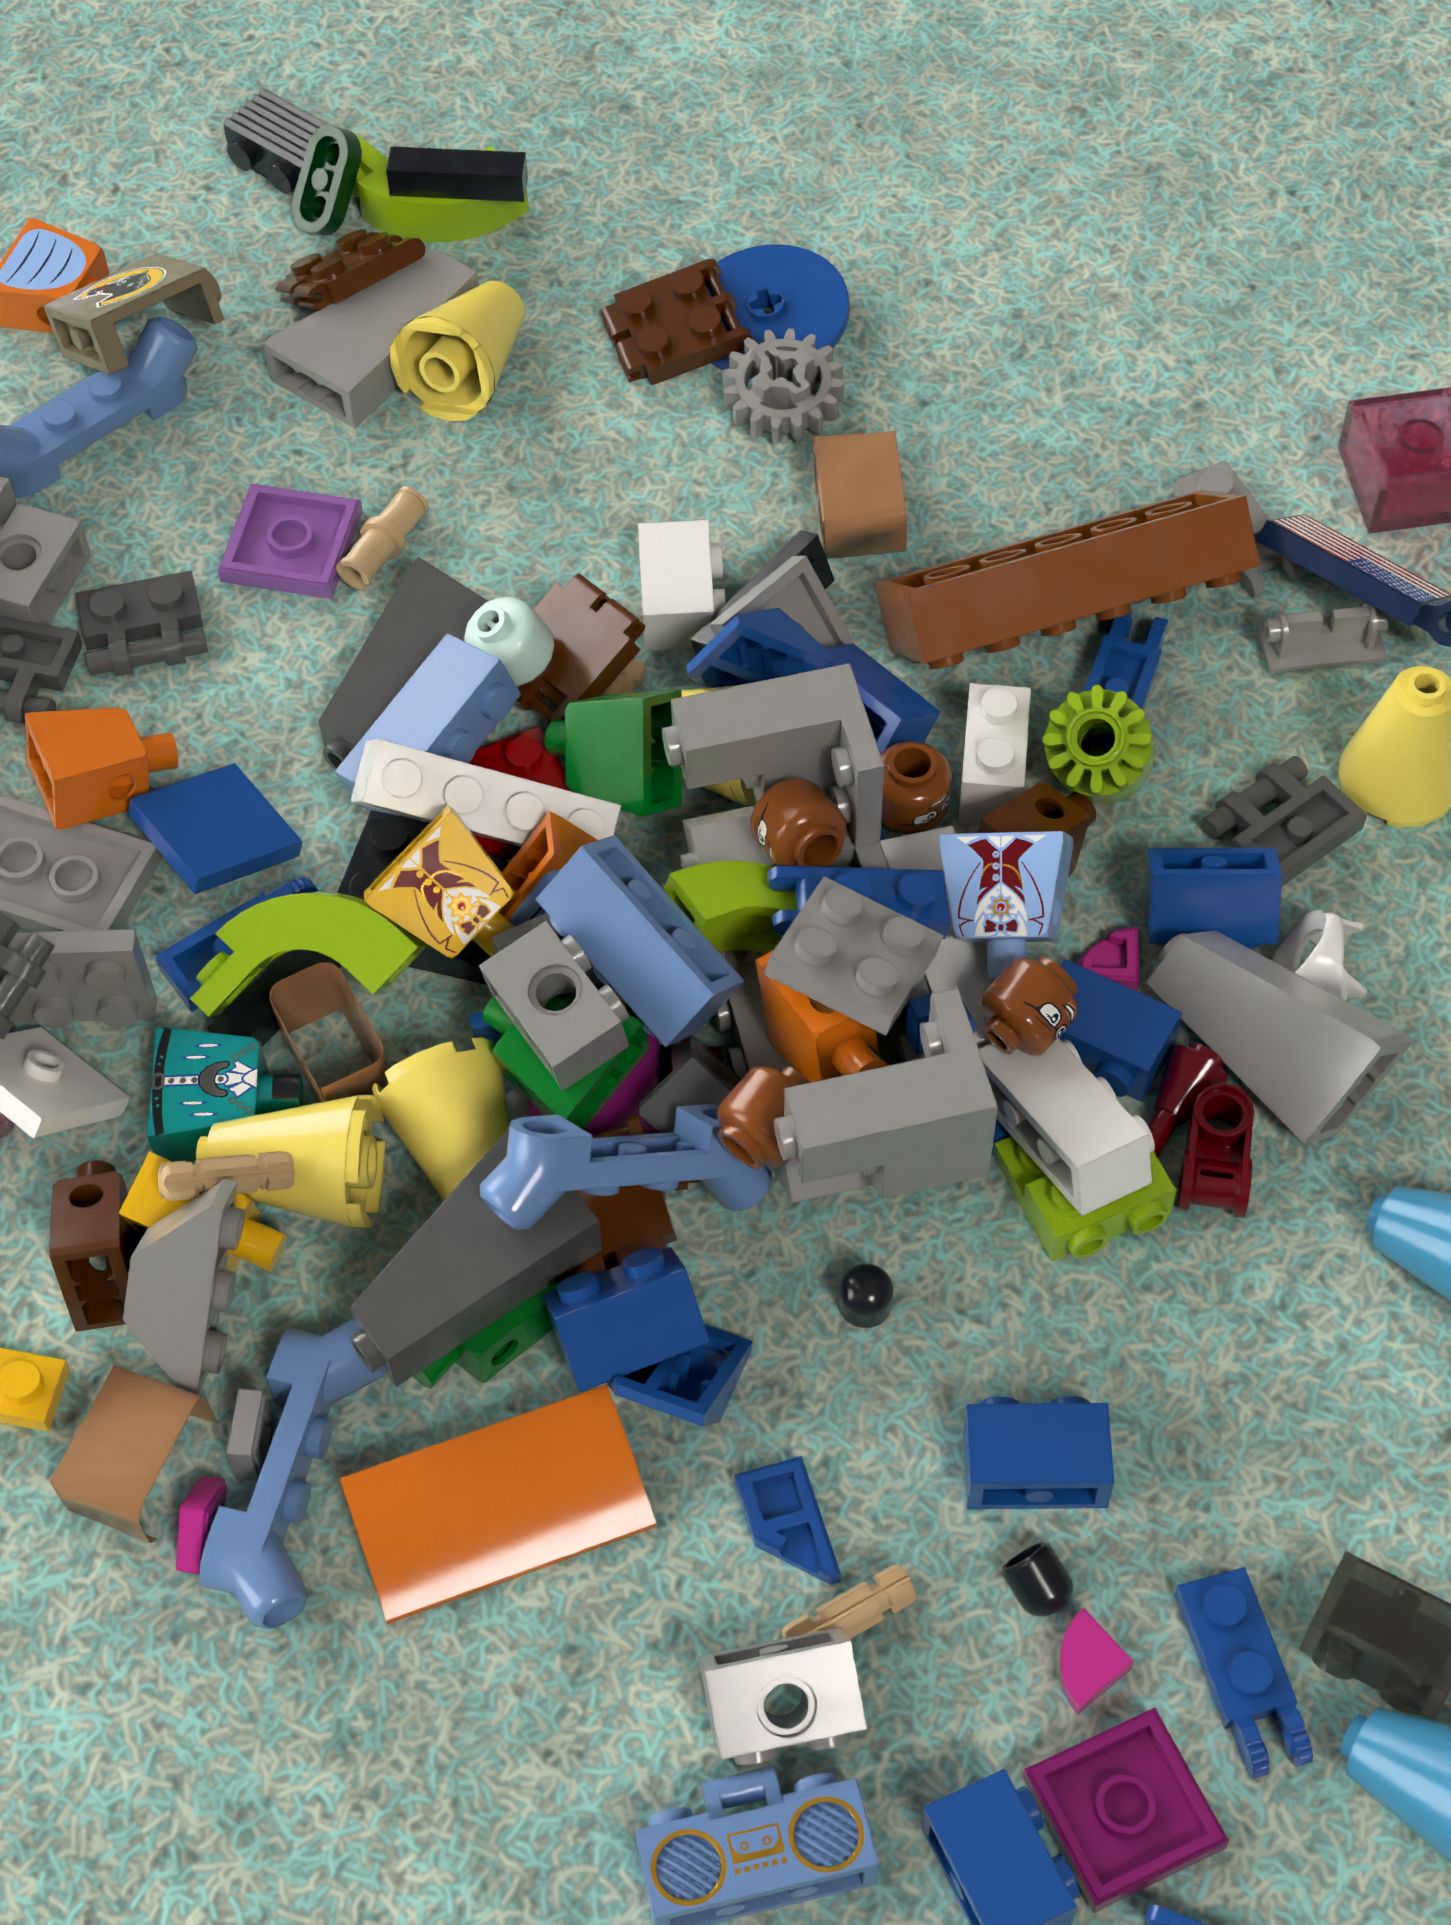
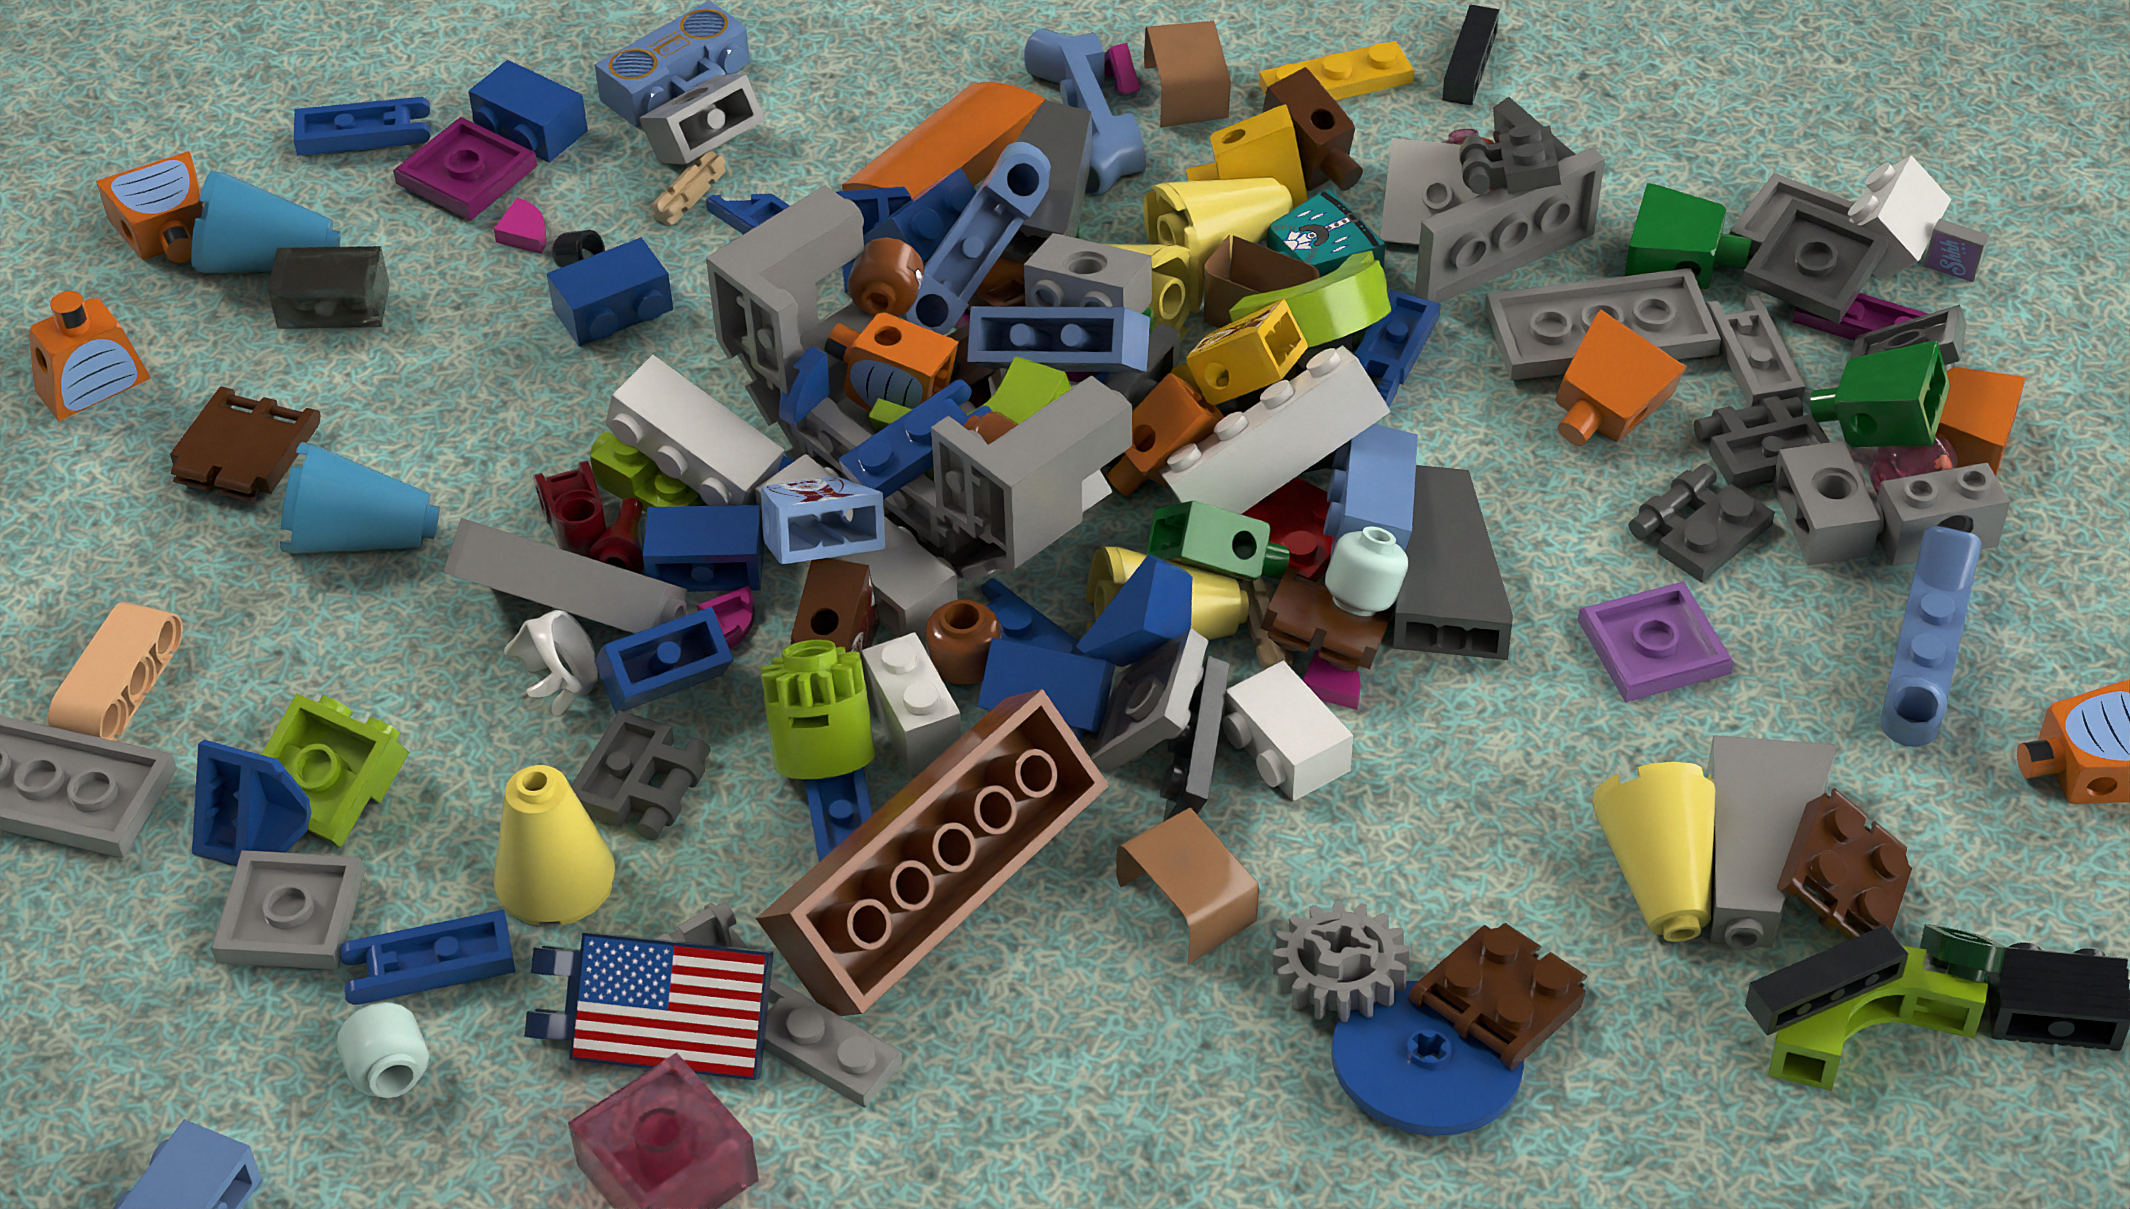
camera: 150 degrees right, 10 degrees down
(87, 316) = (1984, 720): dark tan panel -> none
(182, 1179) = (1232, 137): tan axle -> none
(183, 1284) = (1213, 103): light grey slope -> none
(214, 828) = (1484, 397): blue tile -> none
(250, 1434) = (1124, 99): light grey tile -> none
(382, 537) = (1576, 666): tan pin -> none
(854, 955) = (883, 361): light grey plate -> none
(1028, 1006) = (751, 457): dark orange head -> none
(1242, 1666) = (423, 261): blue hinge -> none

